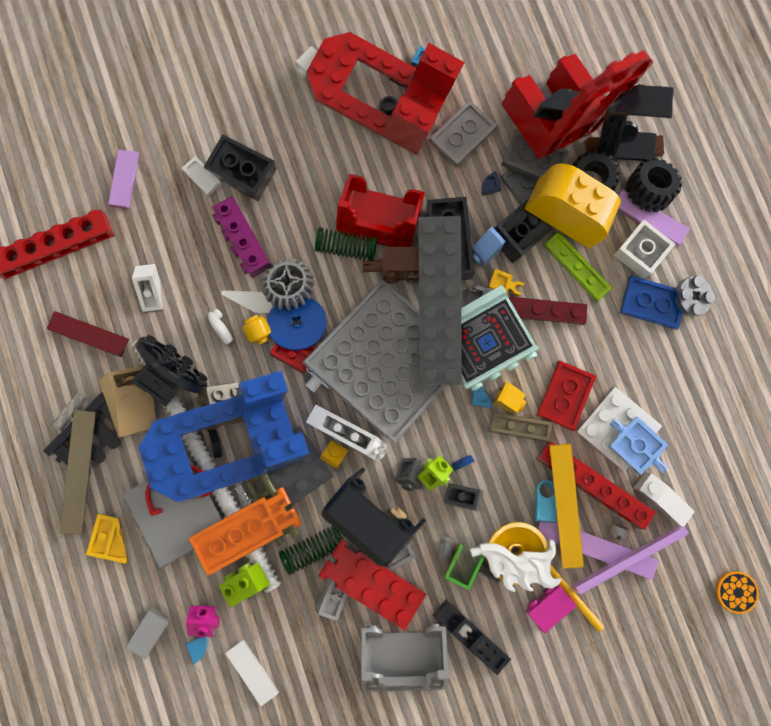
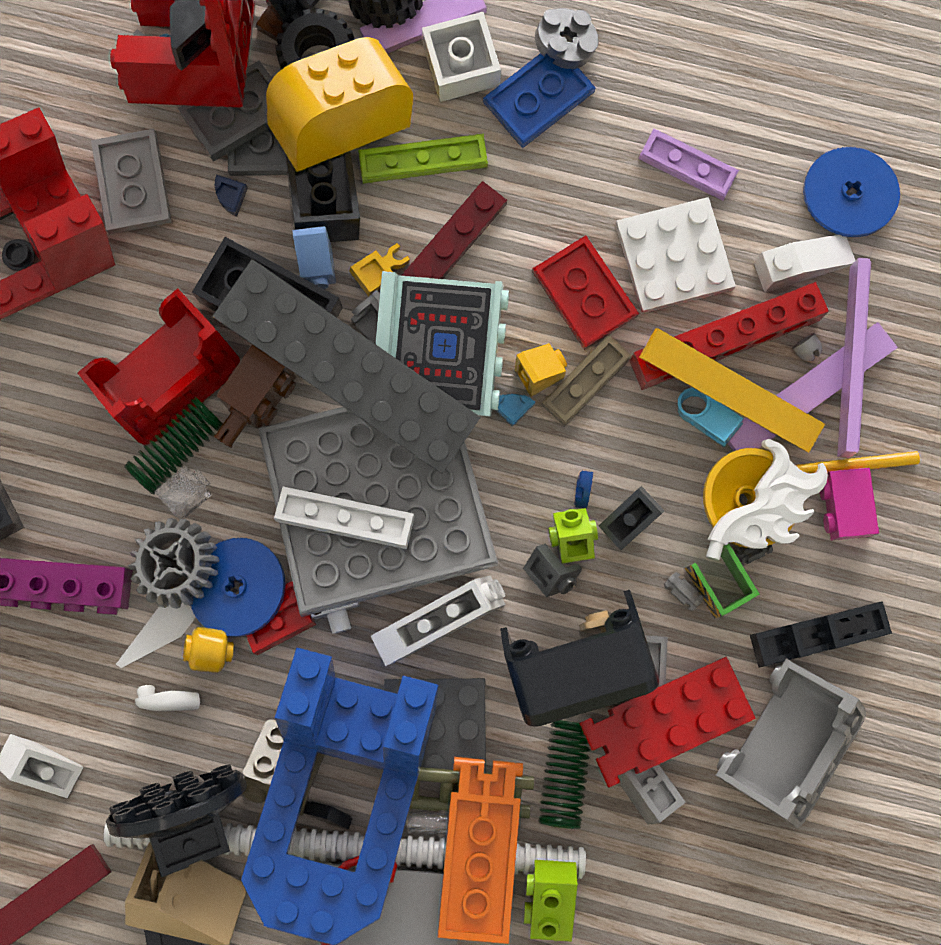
camera: 55 degrees left, 0 degrees up
(326, 265) = (184, 492): none -> clear brick
(334, 454) = (455, 656): yellow plate -> none
(365, 351) = (344, 517): none -> white plate
(638, 445) = (714, 244): light blue plate -> none
(672, 404) = (688, 164): none -> lavender tile
(711, 512) = (861, 212): none -> blue piece

